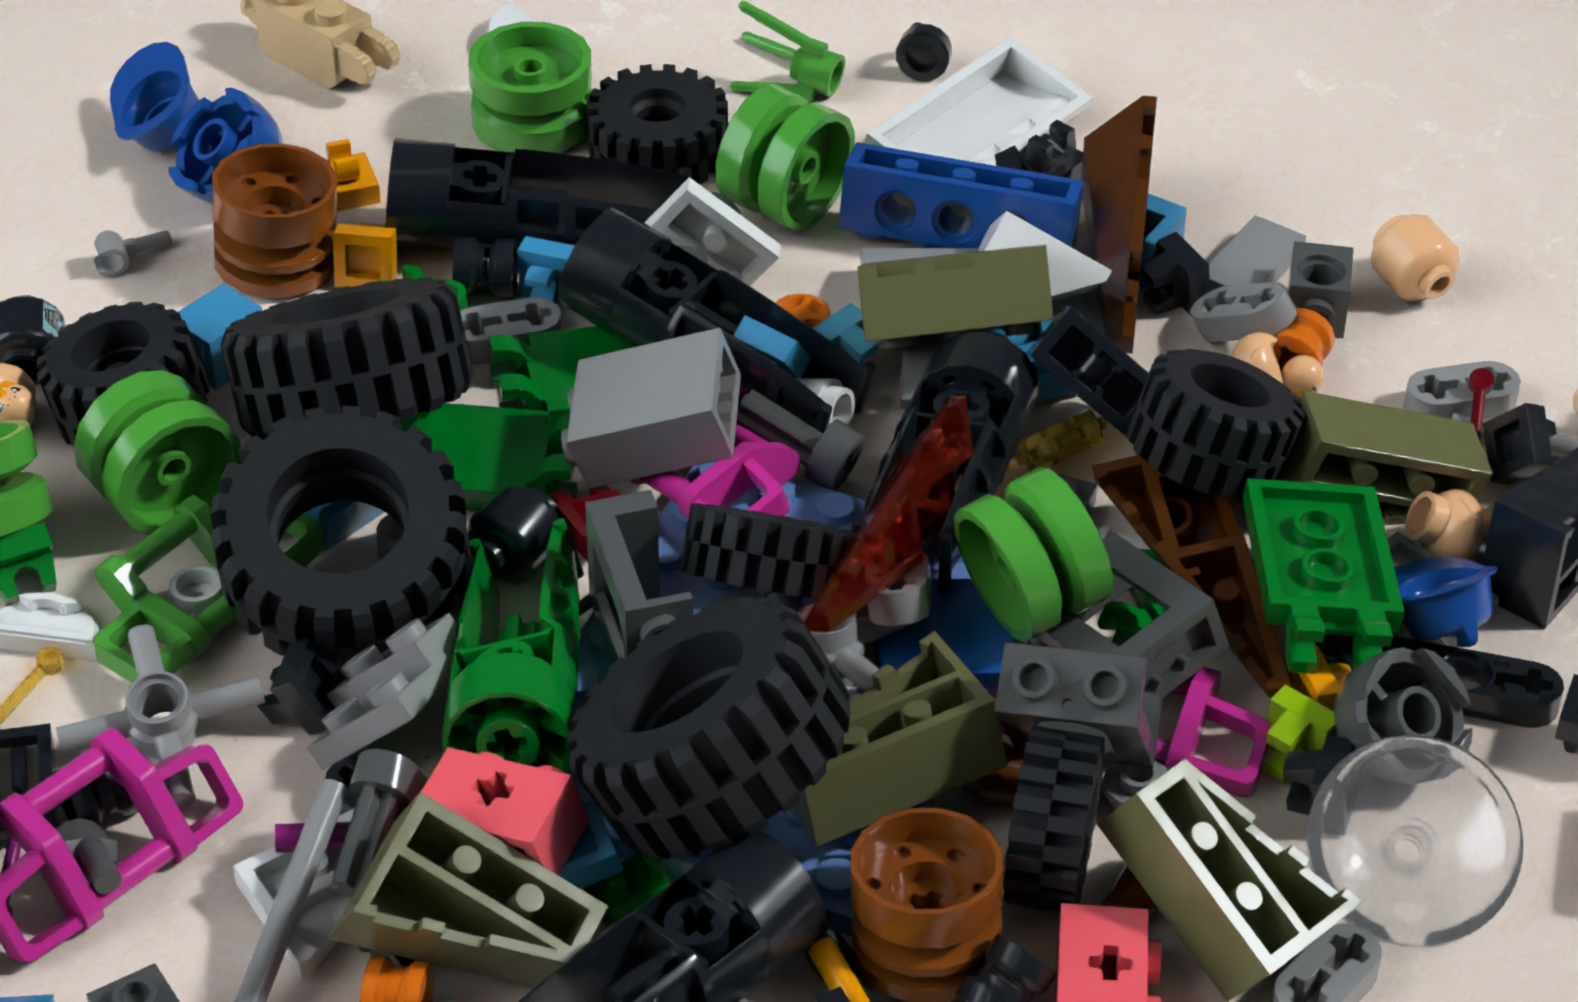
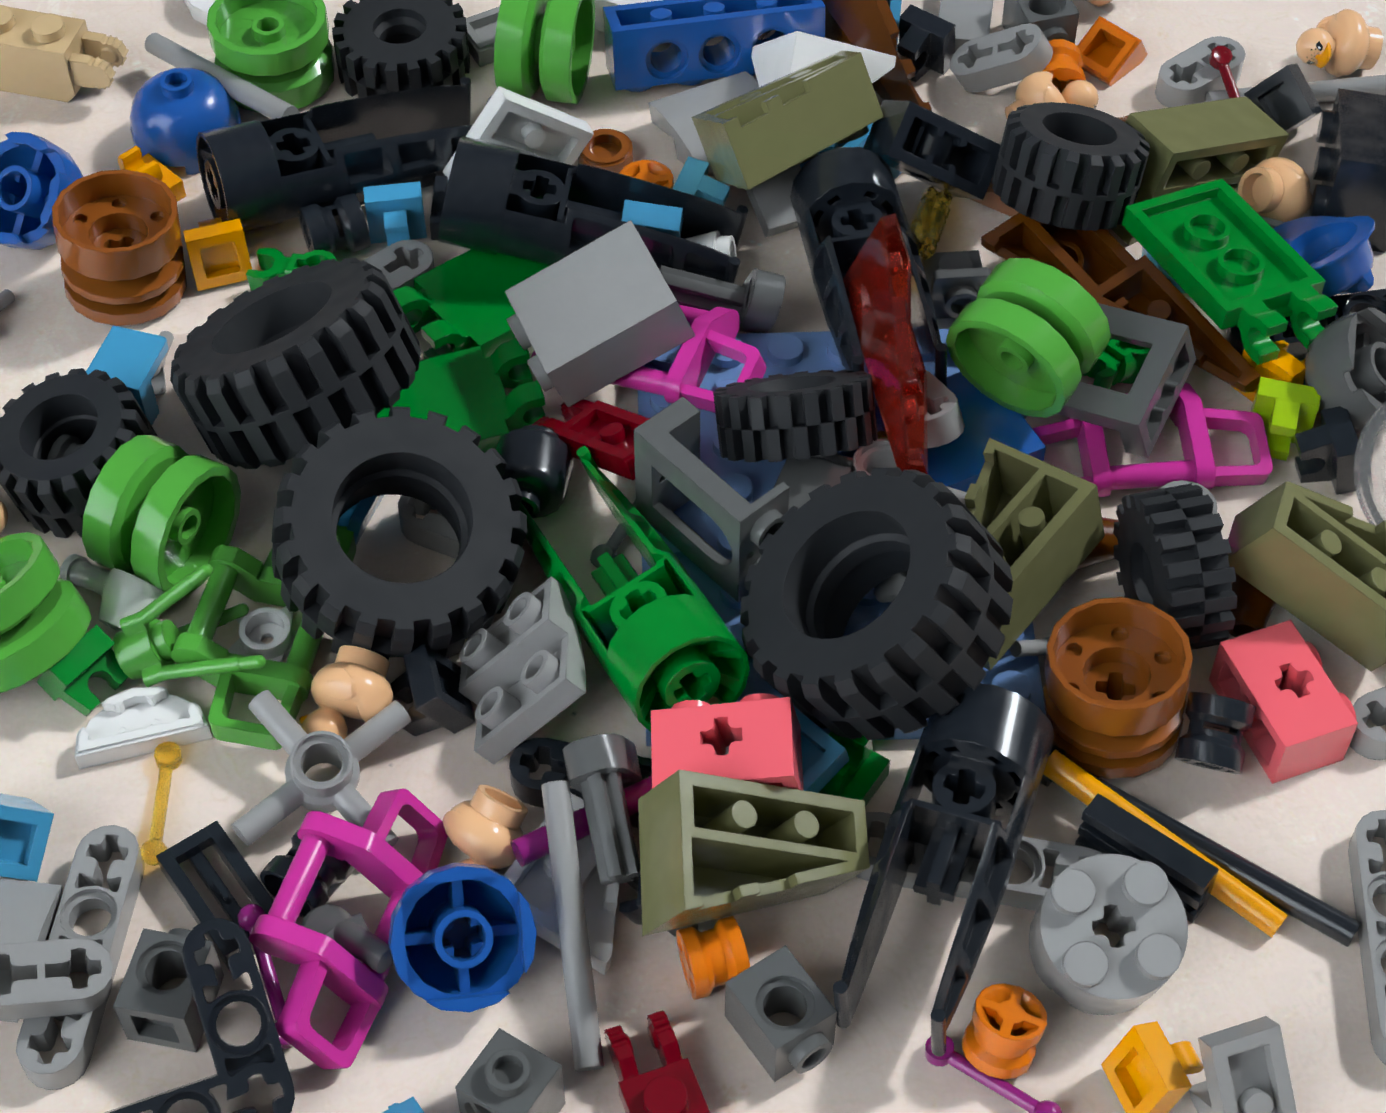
camera: 25 degrees left, 10 degrees up
(78, 555) = (146, 642): none -> bright green plant
(91, 518) = (120, 591): none -> white bar
(176, 881) = (462, 937): none -> blue cylinder
(229, 655) = (349, 688): none -> light nougat animal
(256, 810) = (486, 827): none -> light nougat animal
(415, 112) = (174, 109): none -> blue cylinder
(462, 101) = (234, 85): none -> light grey bar
(792, 277) = (608, 150): none -> dark orange tile
(1080, 695) = (1154, 454): dark grey panel -> none
(1376, 345) = (1110, 51): none -> orange slope

